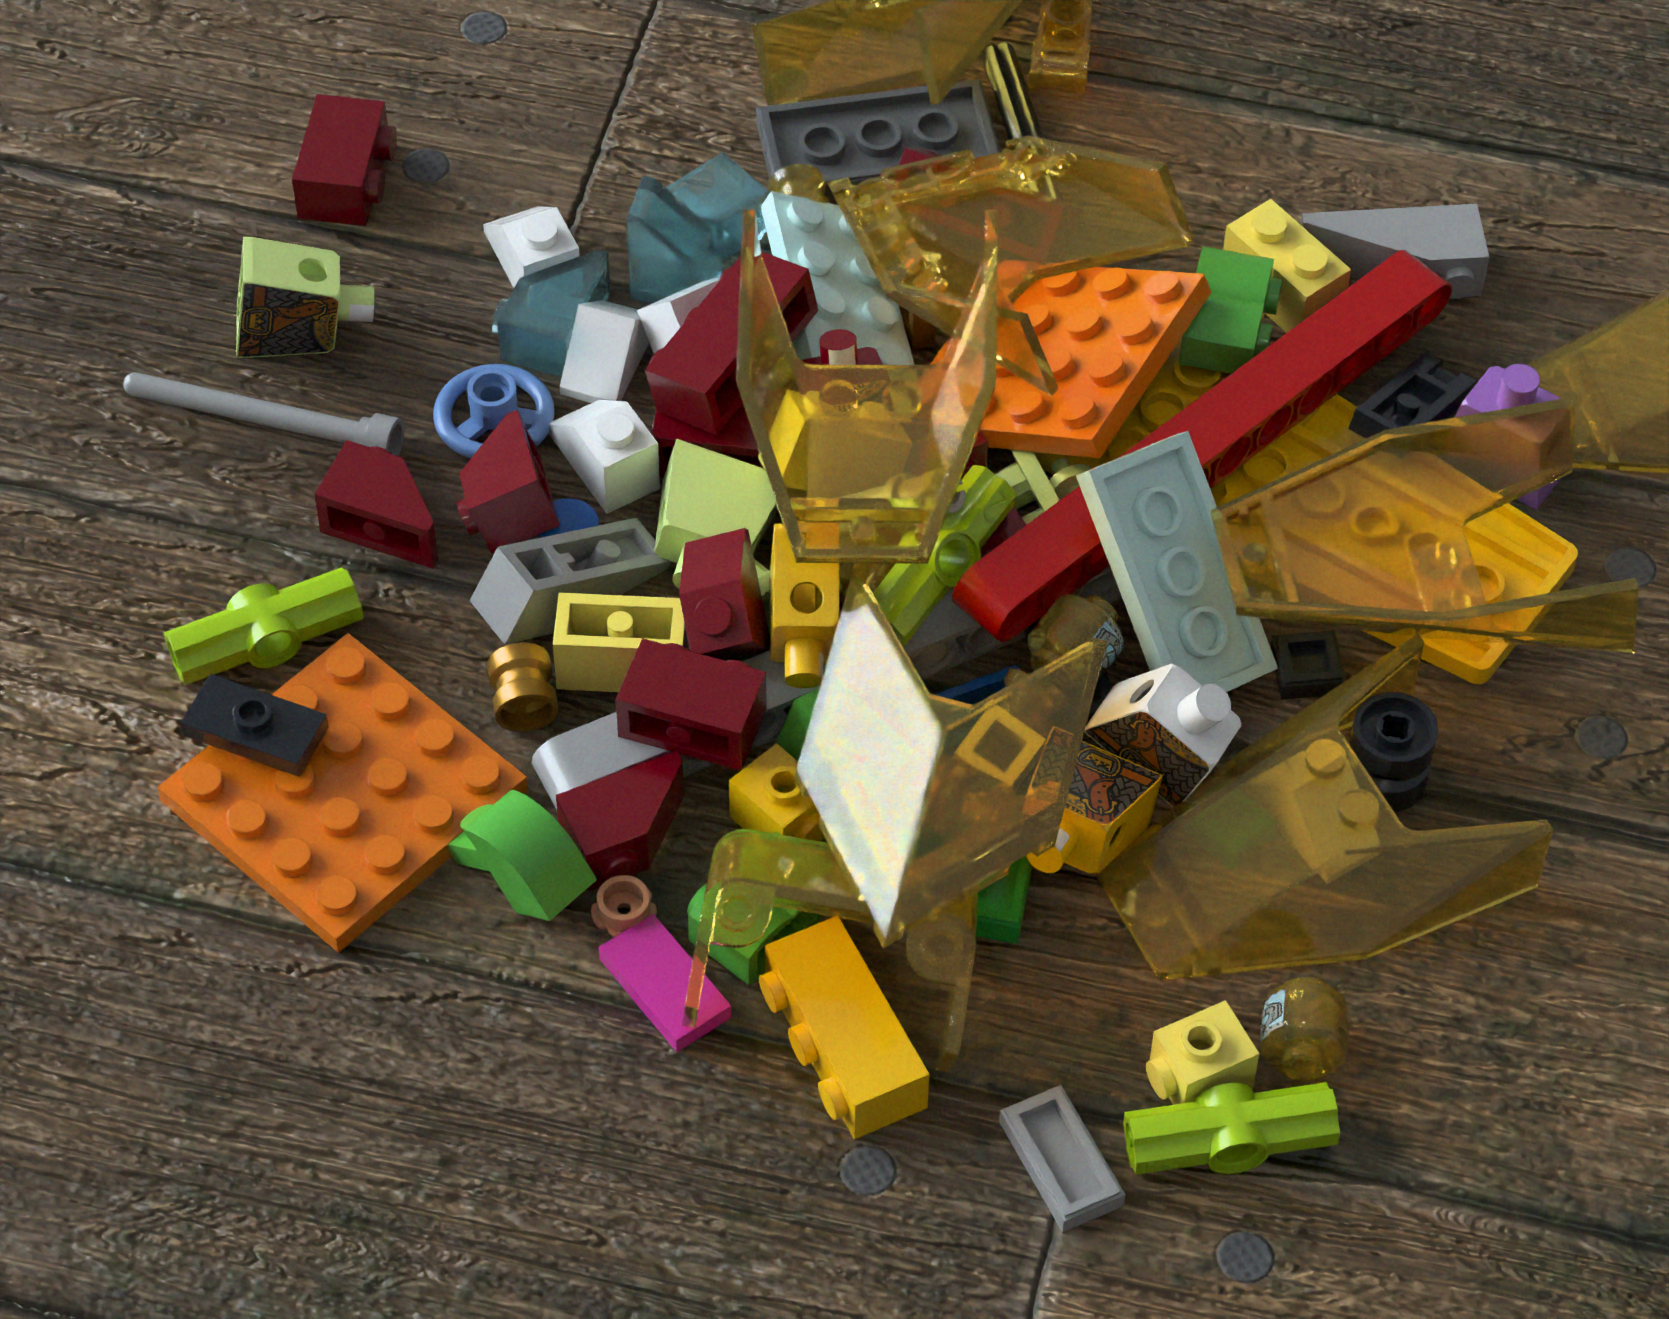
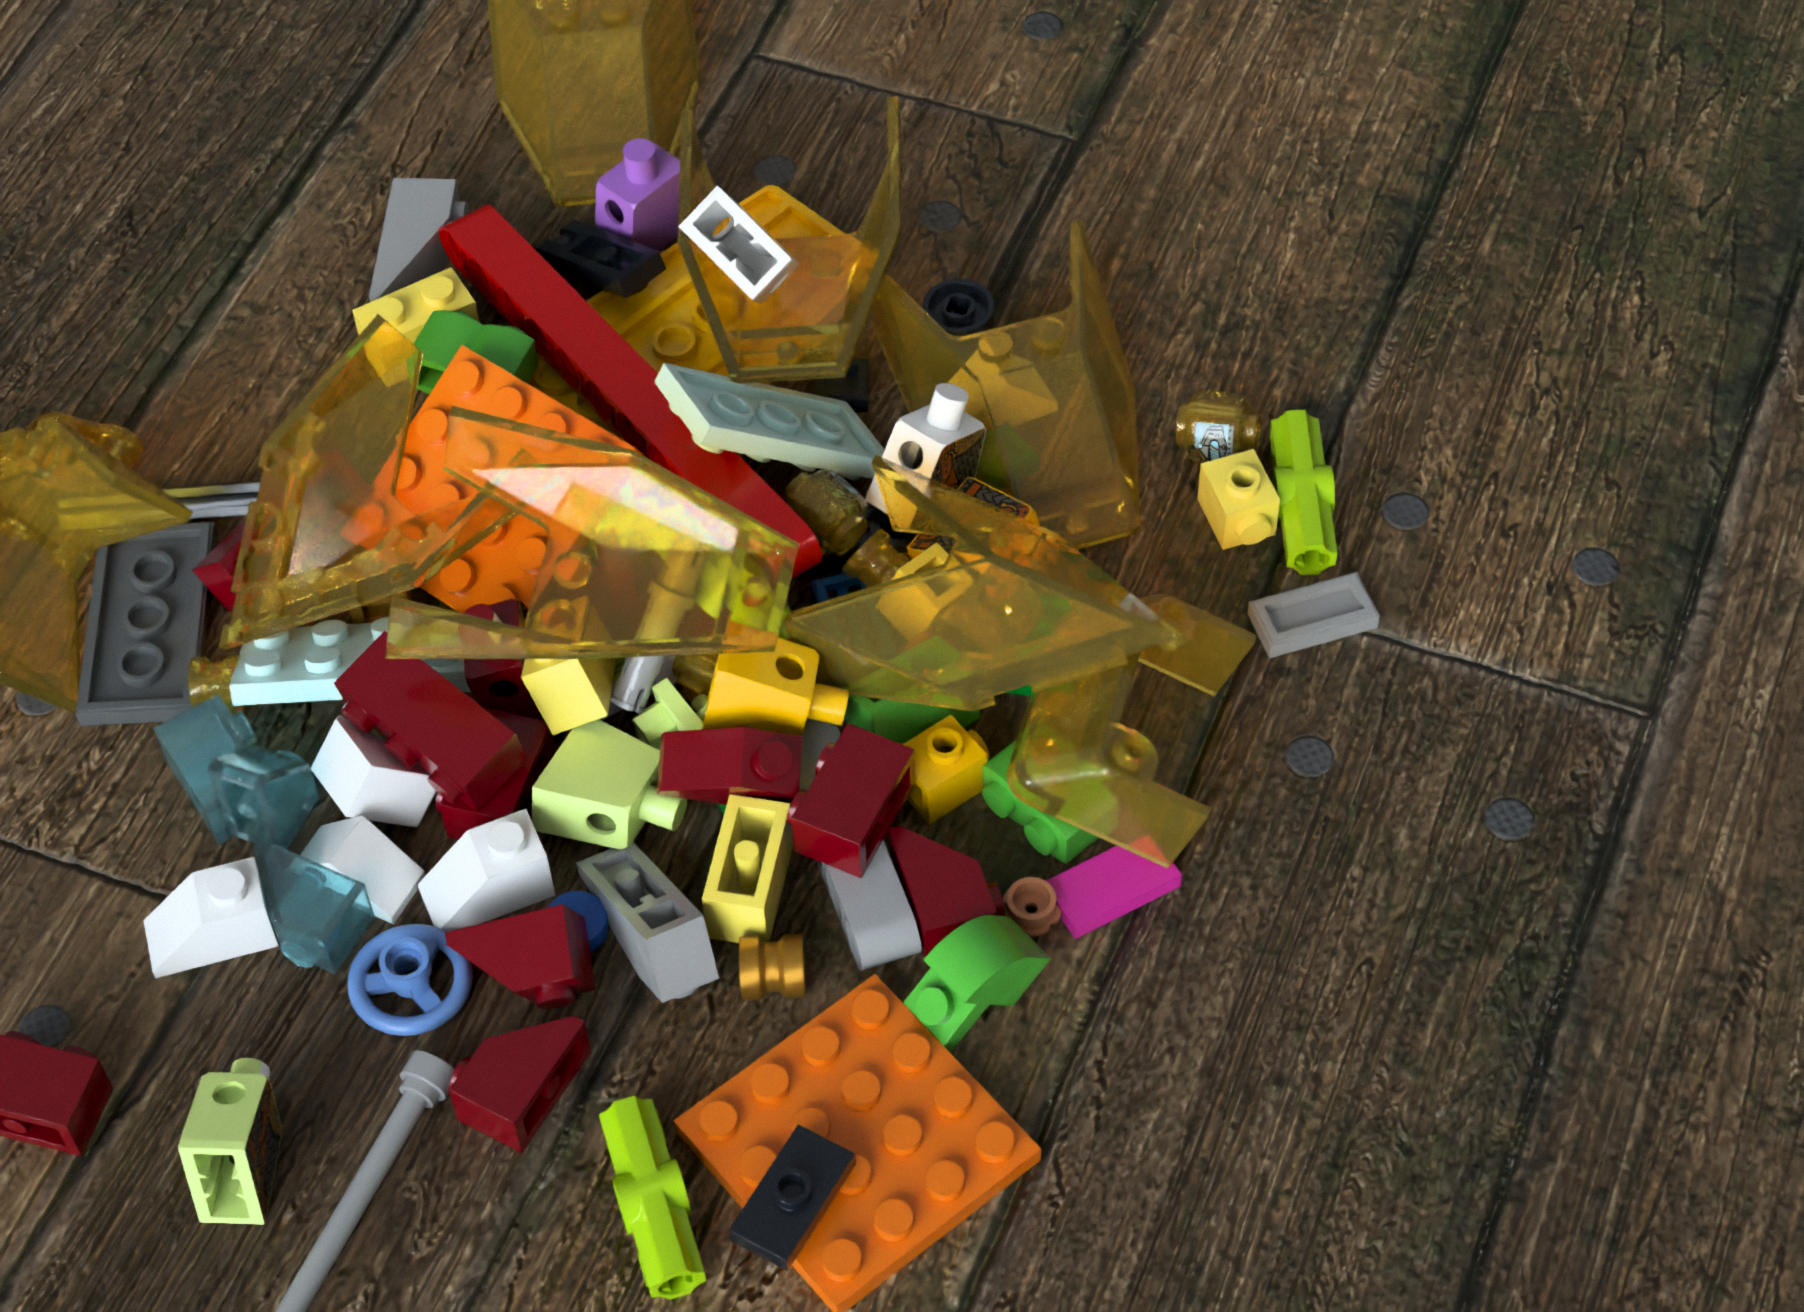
camera: 80 degrees left, 0 degrees up
(844, 1028) = (1210, 733): yellow brick -> none
(1387, 487) = (741, 248): none -> white torso

